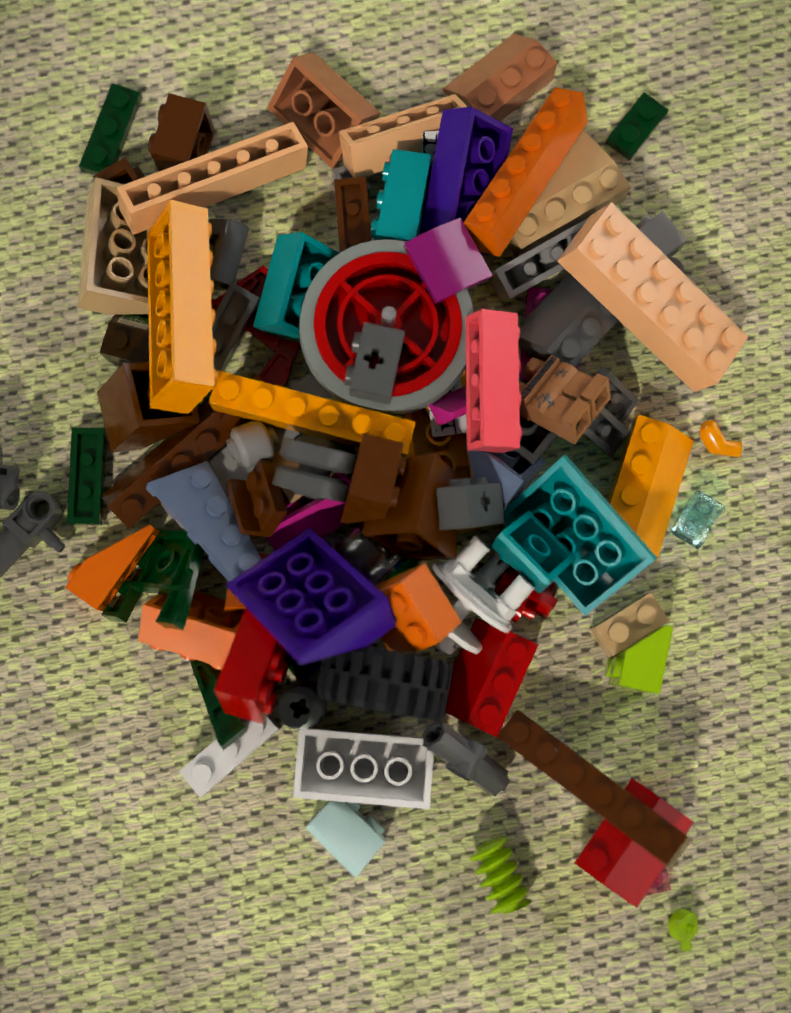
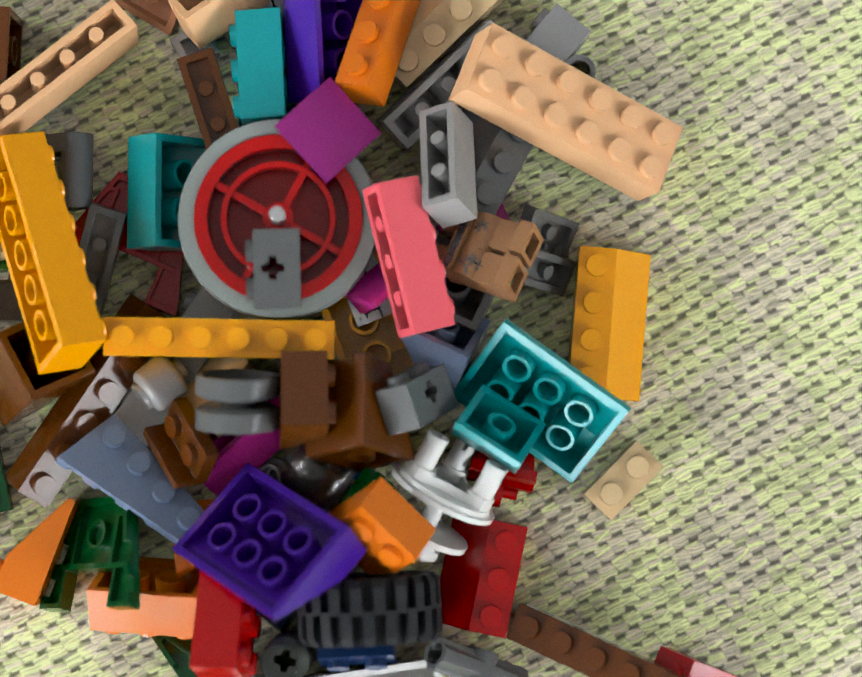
camera: 15 degrees left, 5 degrees up
(350, 717) = (340, 658): none -> dark blue plate
(543, 315) = (447, 165): none -> light grey brick
(642, 663) = (643, 521): lime slope -> none
(697, 519) = (671, 344): clear light blue bracket -> none
(715, 441) = (675, 251): light orange arm -> none

